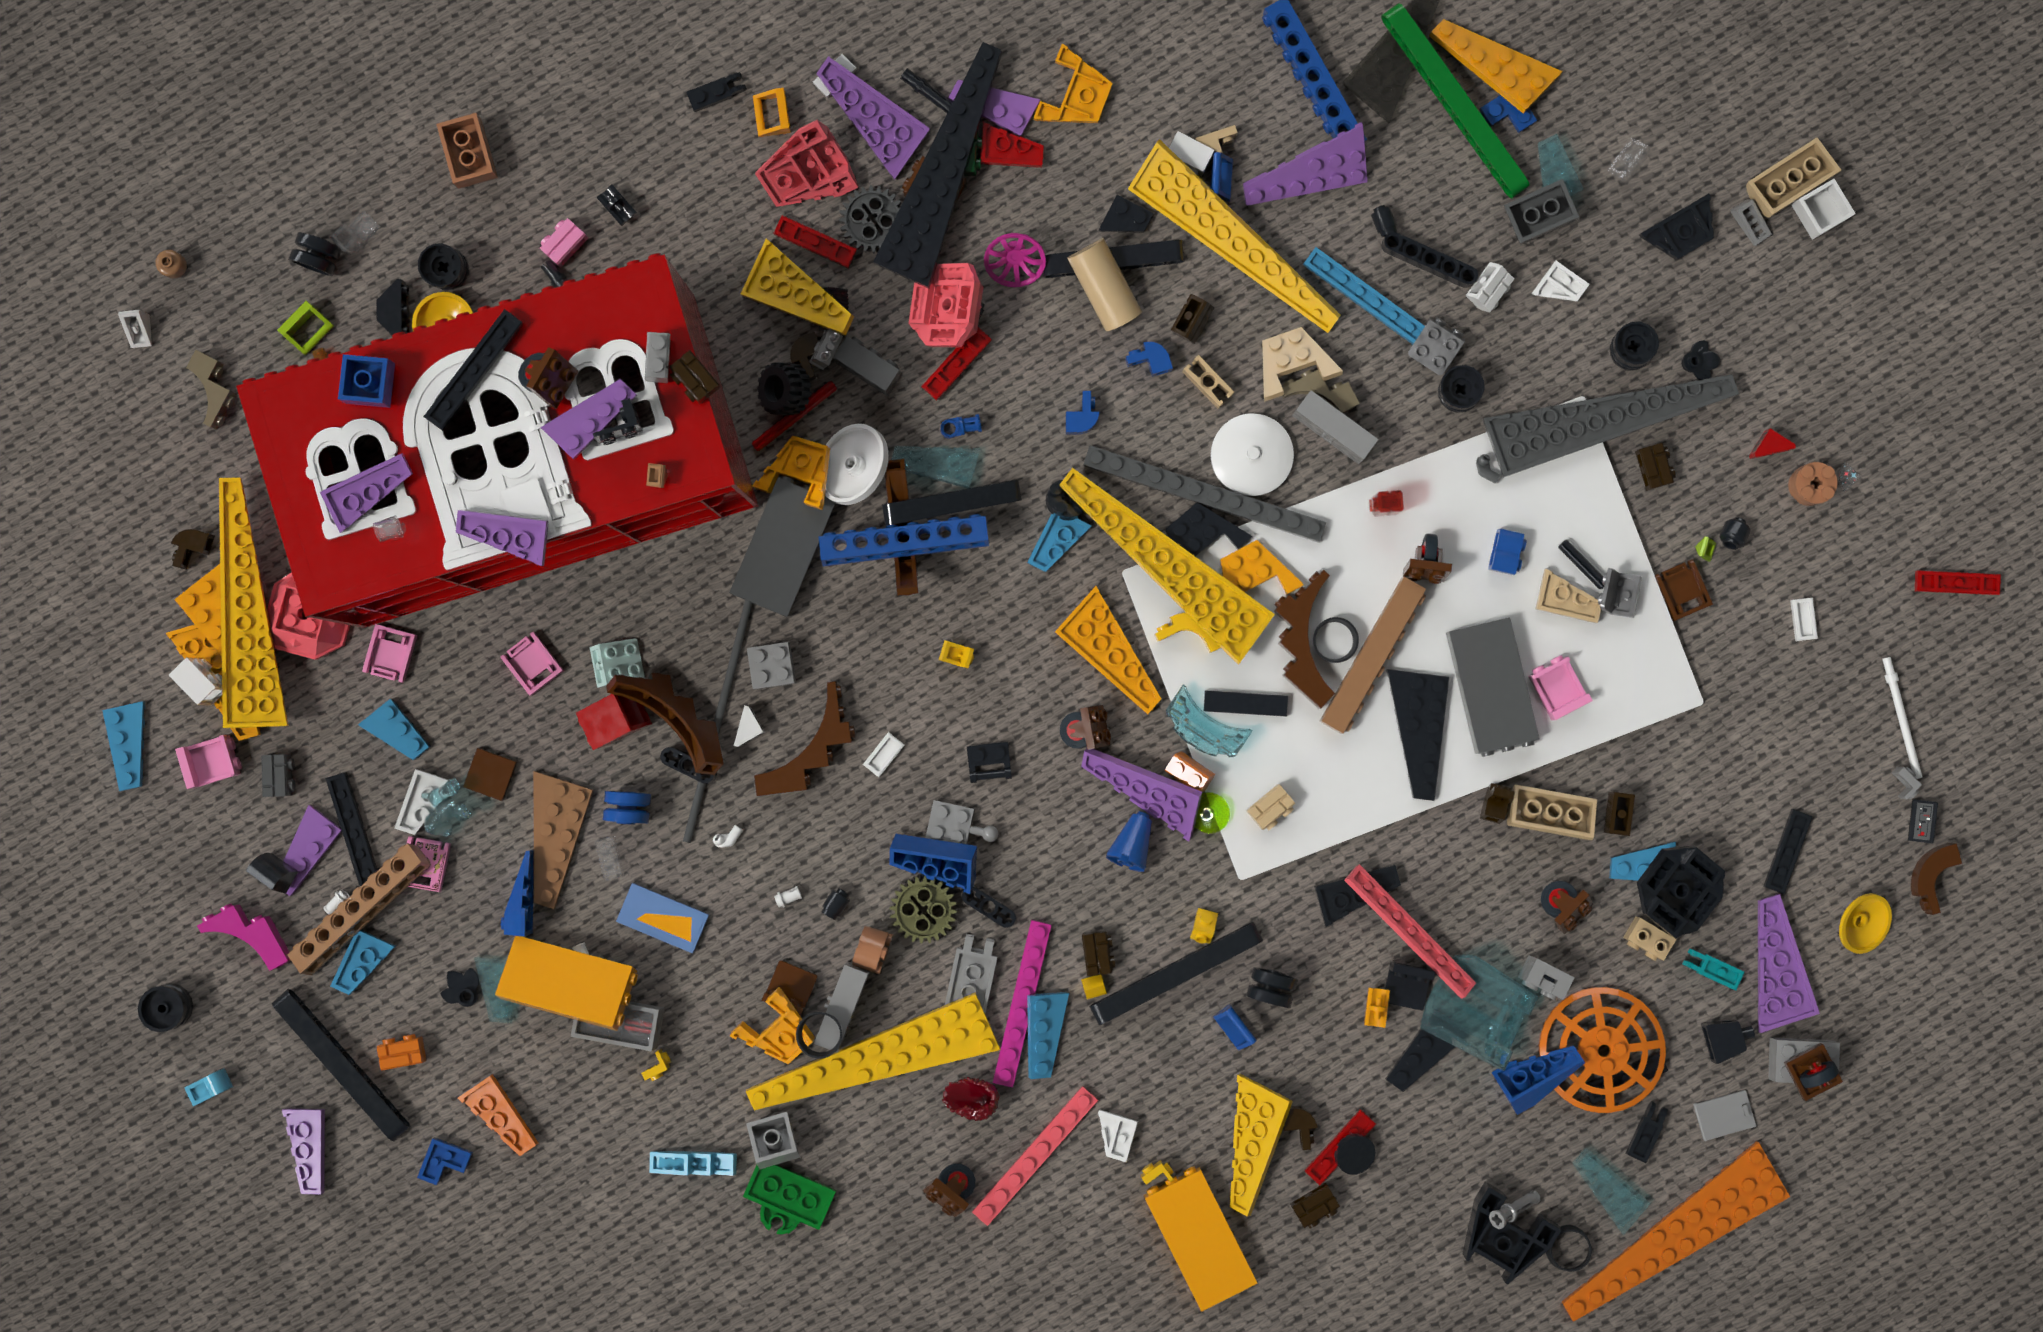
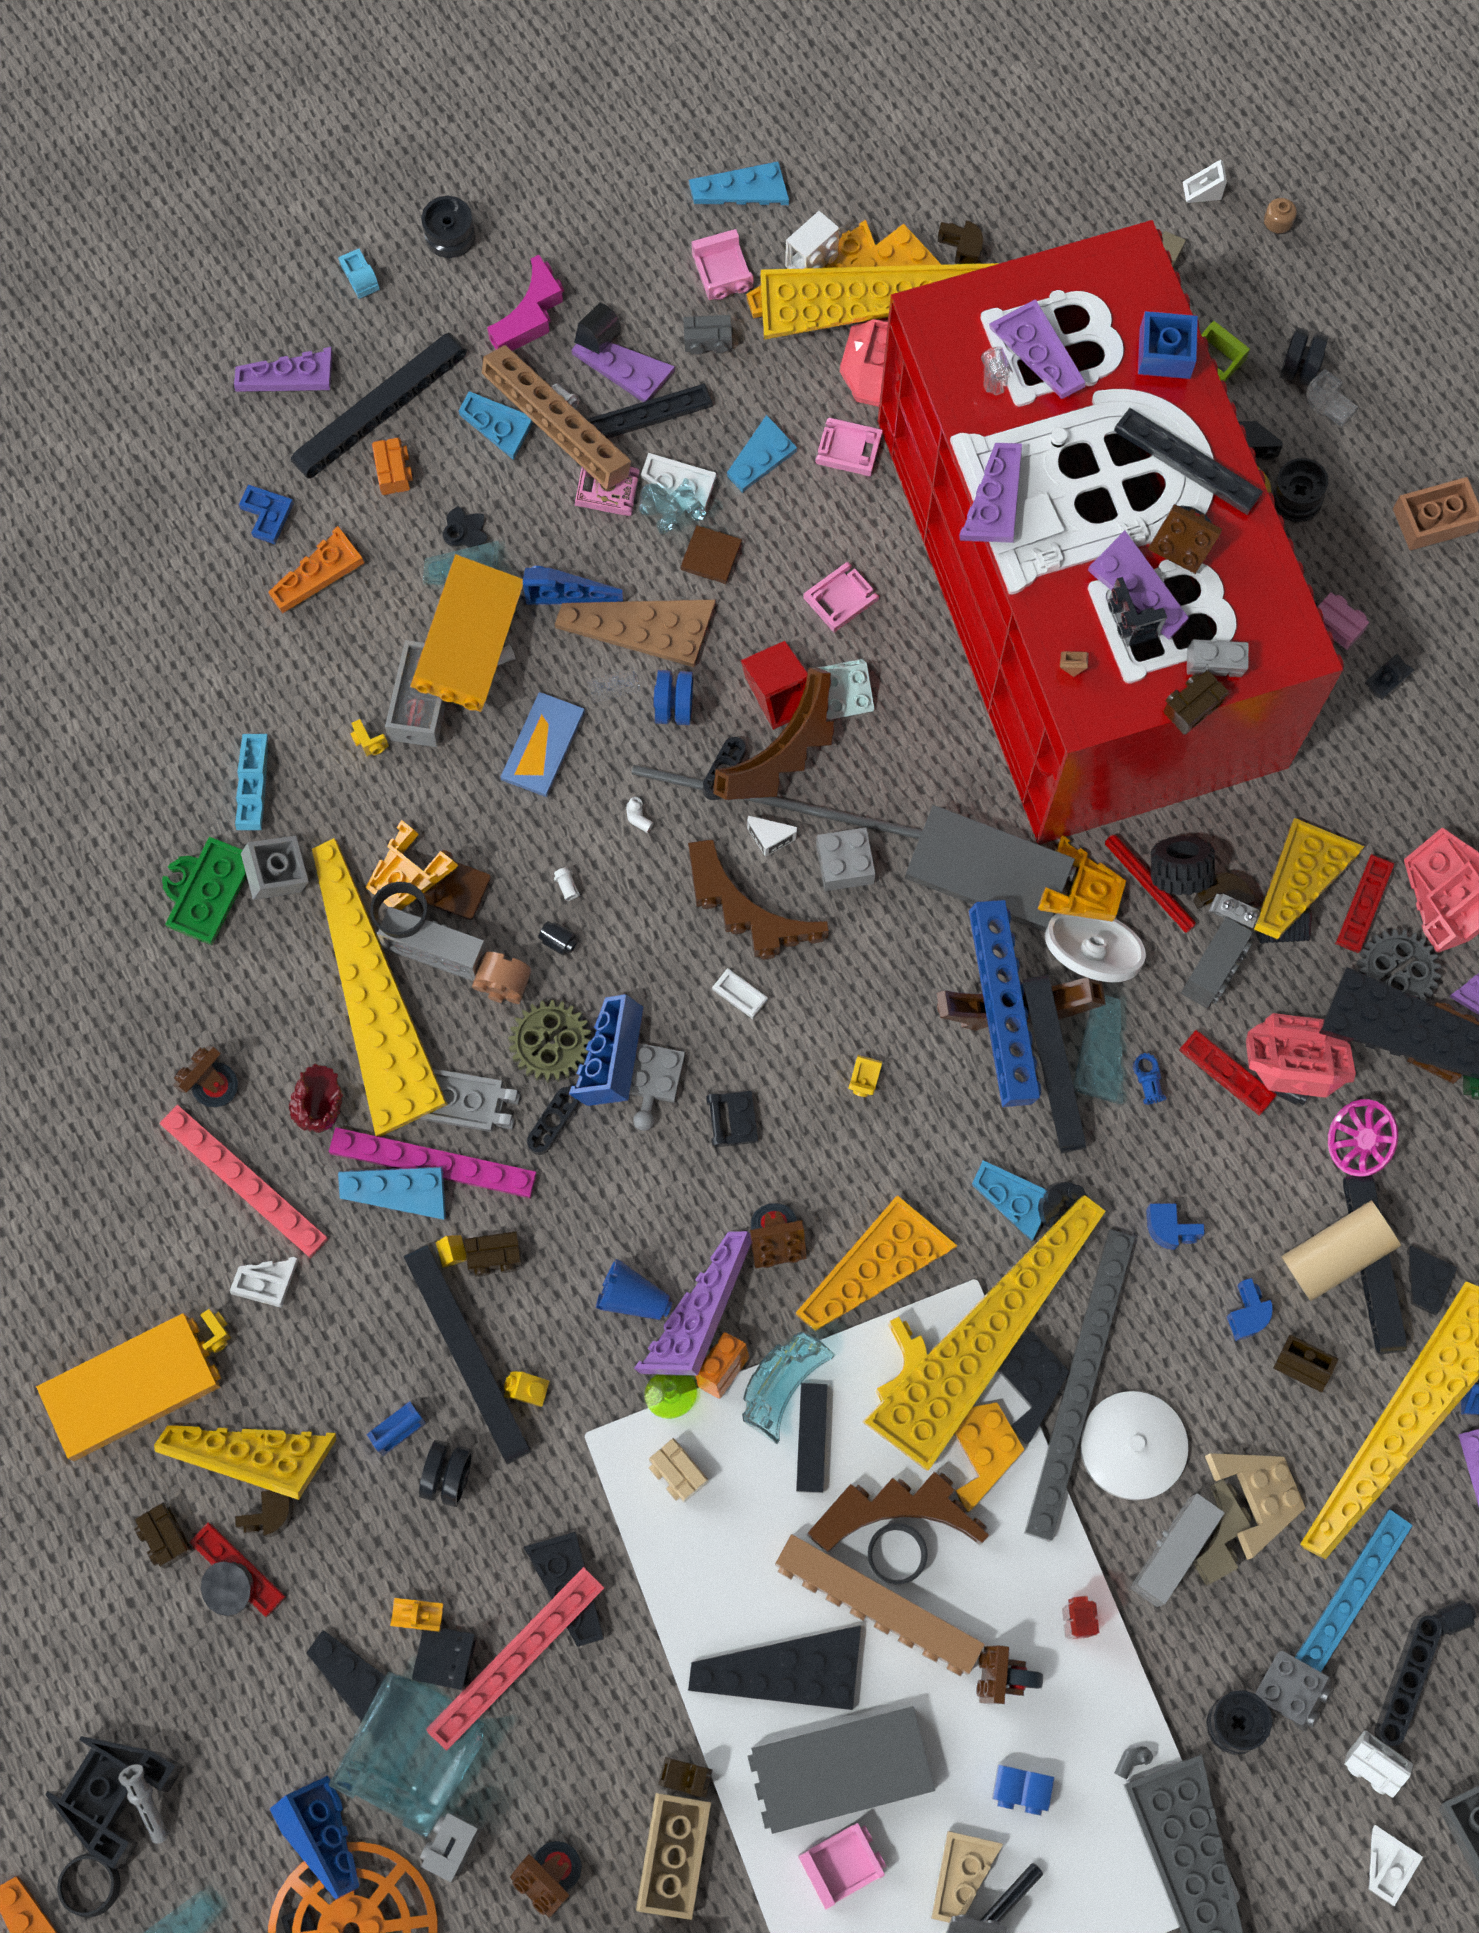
camera: 85 degrees right, 15 degrees down
(1208, 372) = (1236, 1386): tan piece -> none

